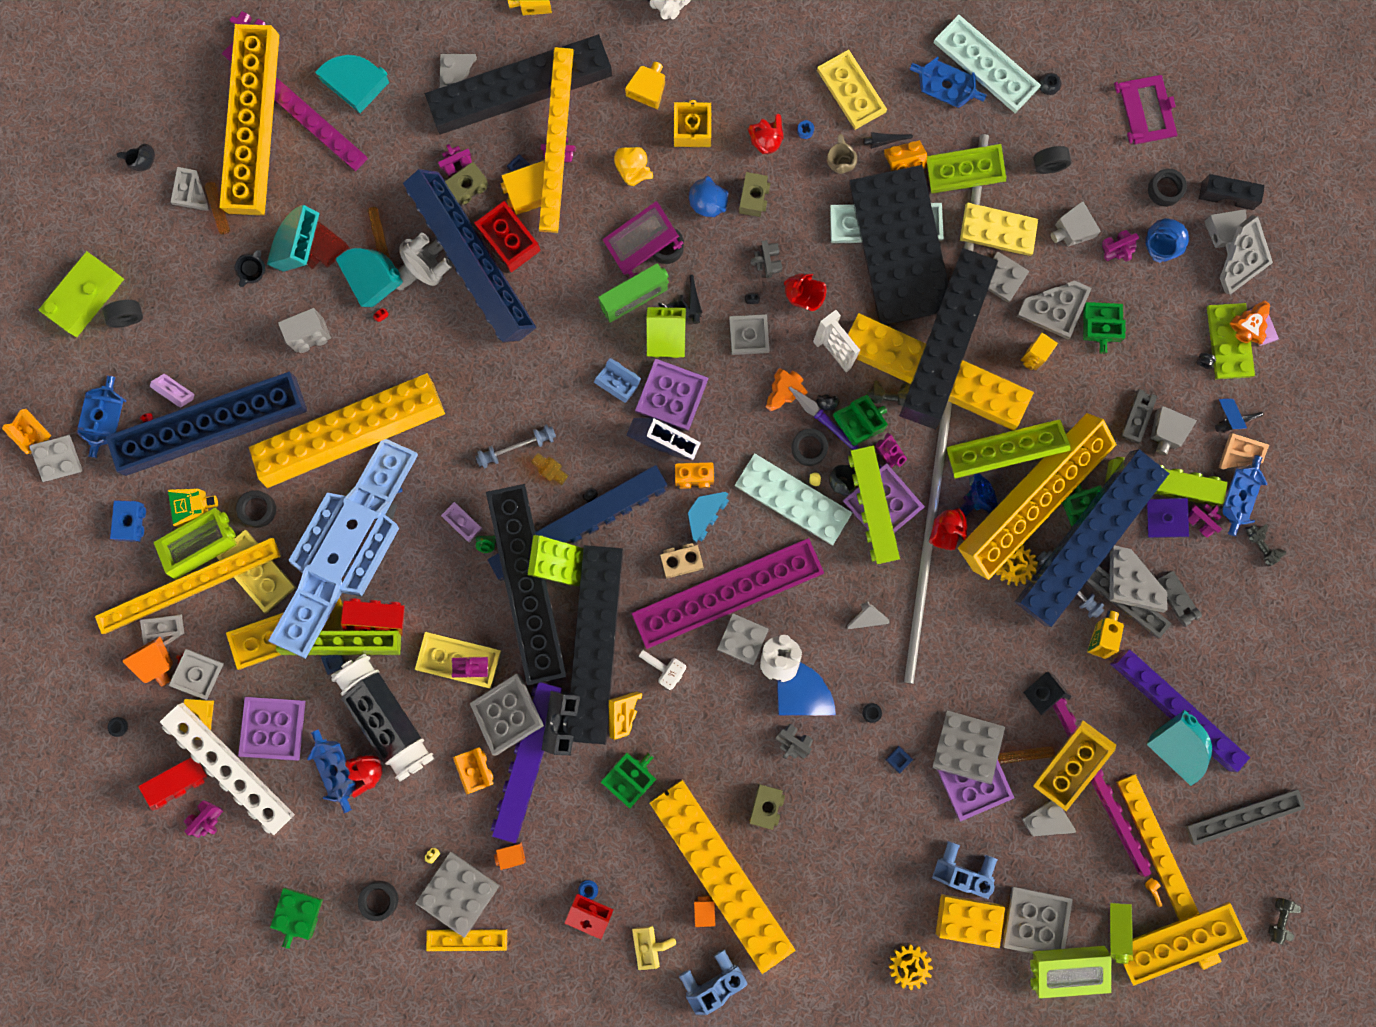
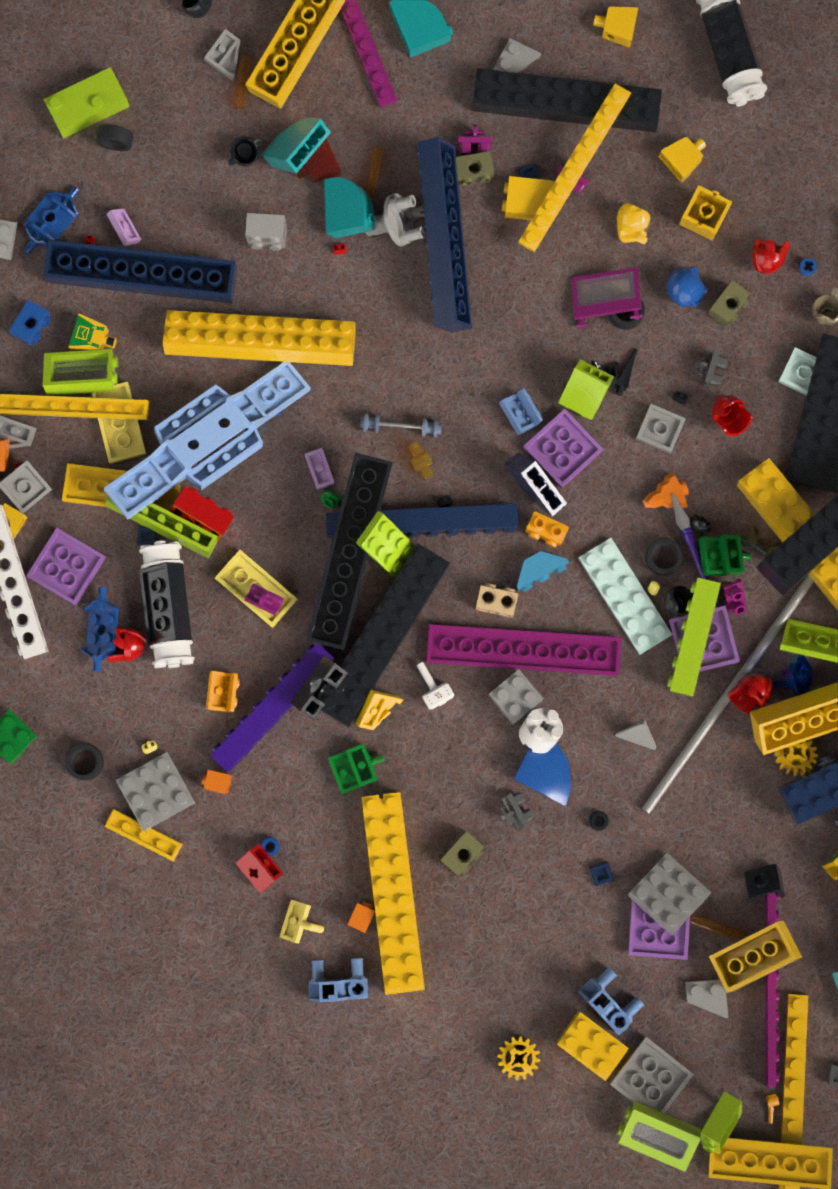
camera: 30 degrees right, 0 degrees up
(245, 498) = (142, 354): black tyre -> none
(506, 714) = (275, 657): light grey plate -> none
(507, 236) = (487, 234): red brick -> none
(634, 292) = (575, 340): bright green piece -> none
(836, 341) = (735, 474): white fence -> none

